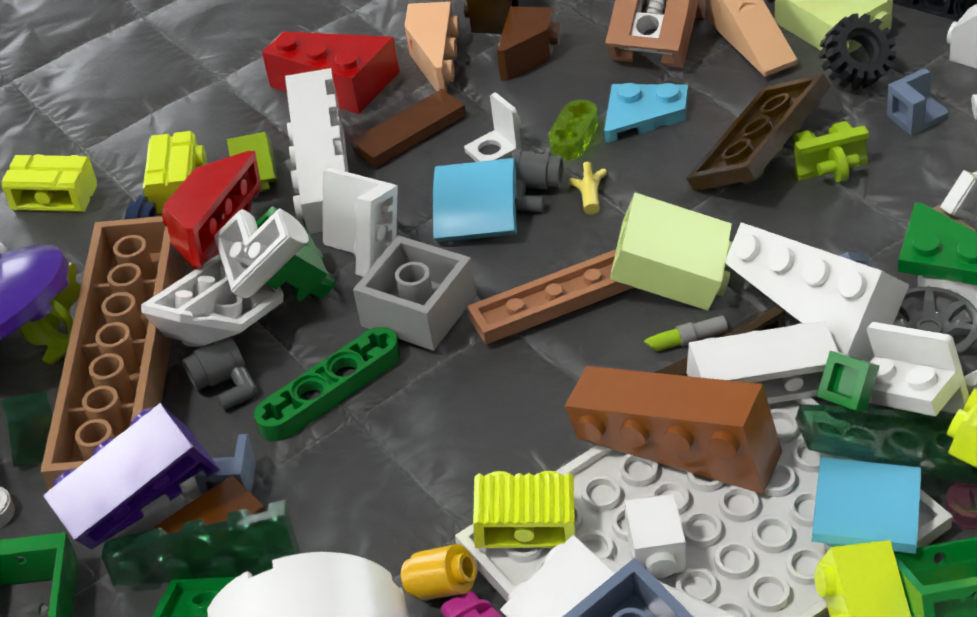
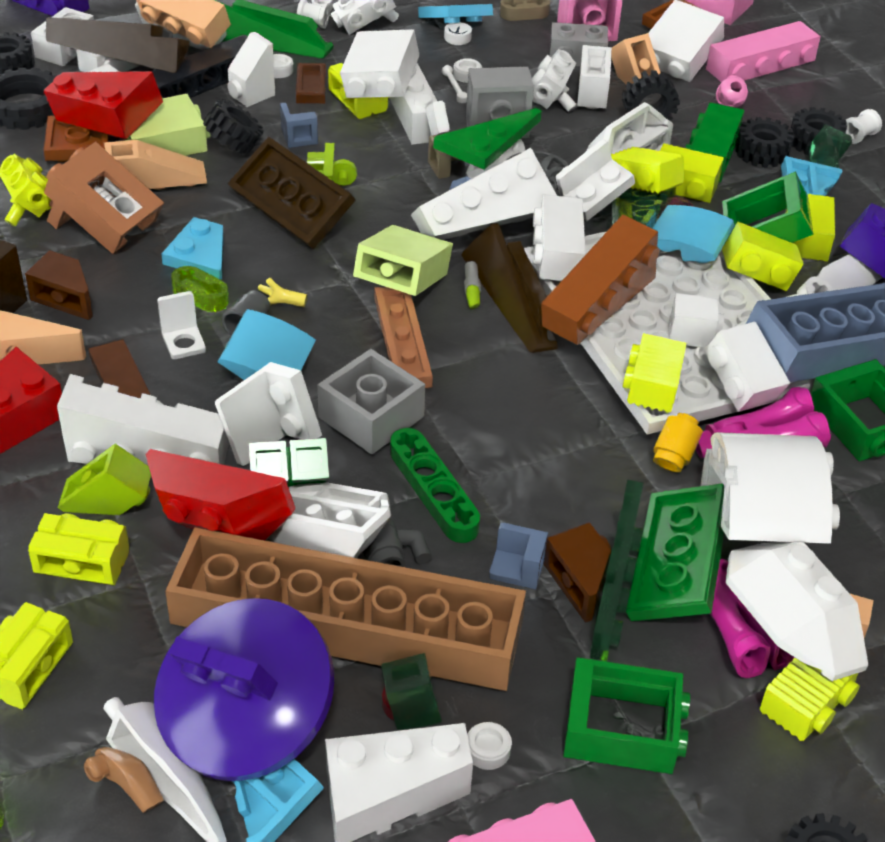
camera: 85 degrees left, 0 degrees up
(128, 475) = (564, 574): wedge -> none
(141, 208) = (131, 582): dark blue plate -> none
(257, 254) = (321, 462): white brick -> none
(848, 381) = (602, 199): green tile -> none

